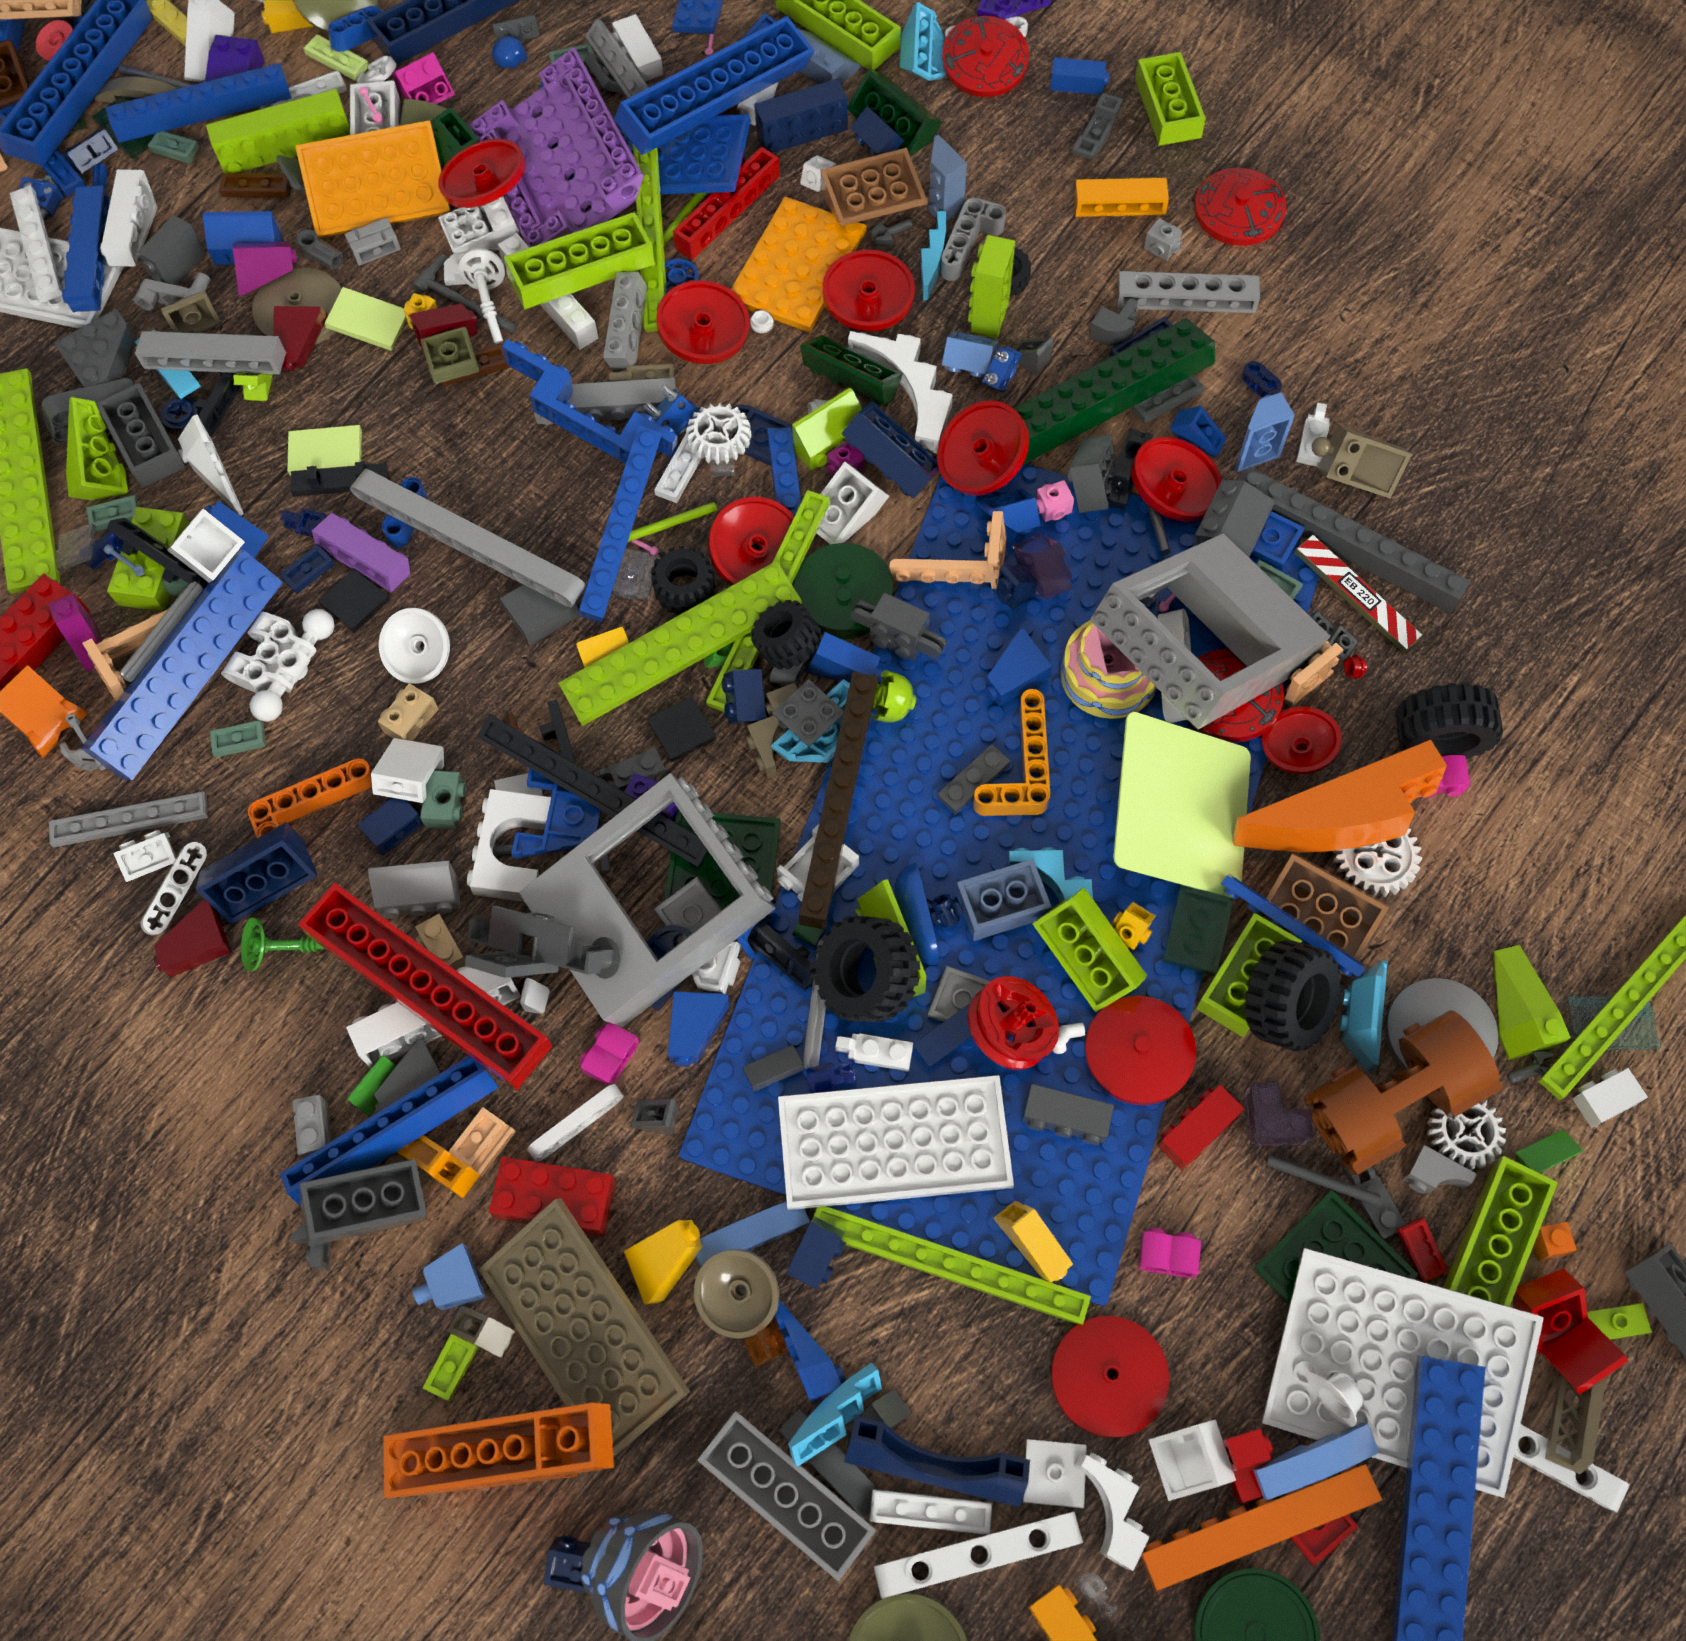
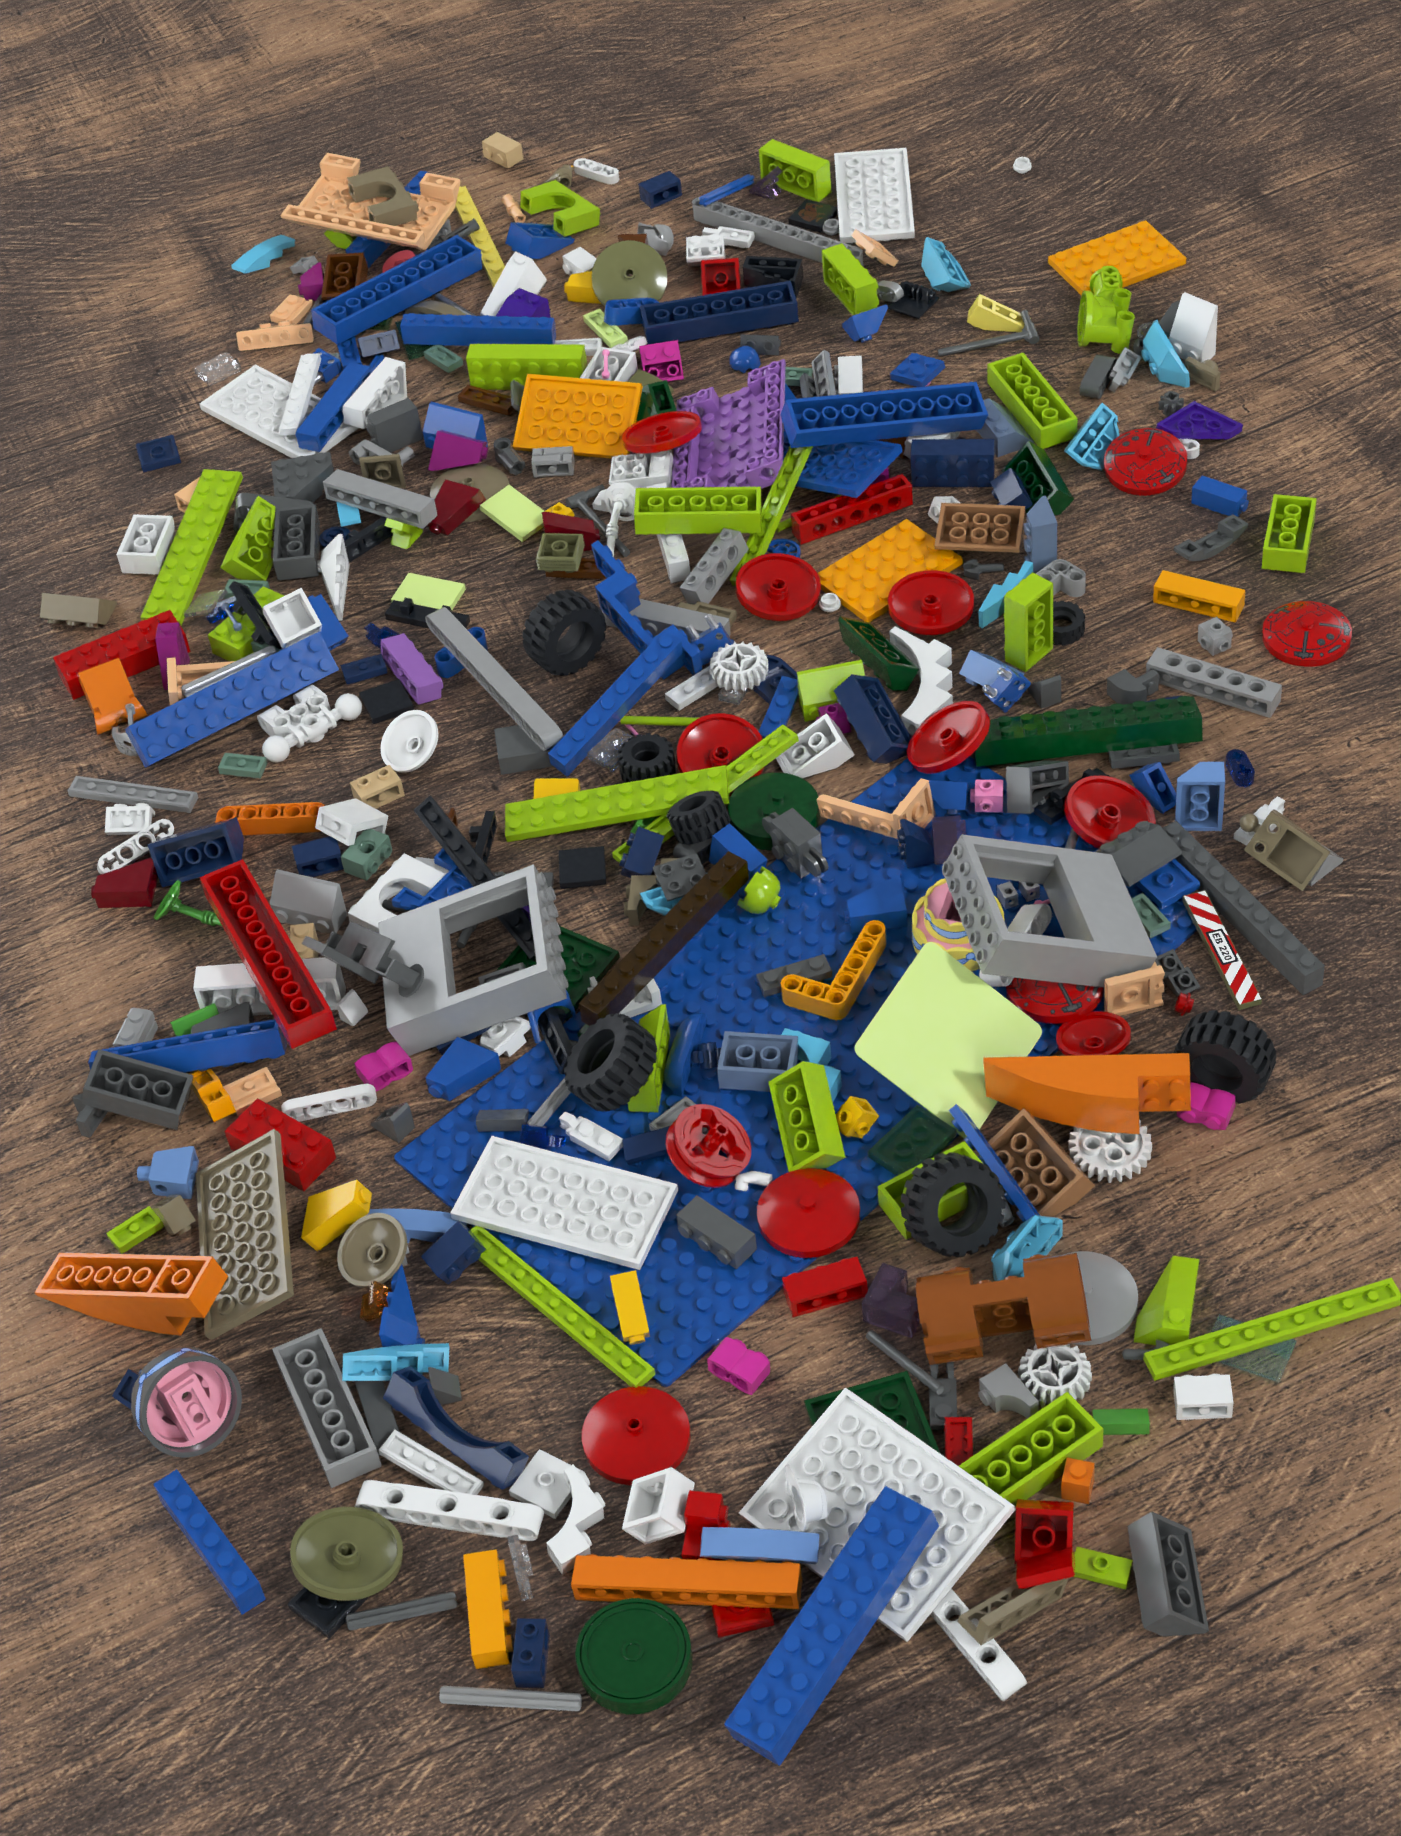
camera: 30 degrees right, 20 degrees down
(517, 457) = (550, 621): none -> black tyre

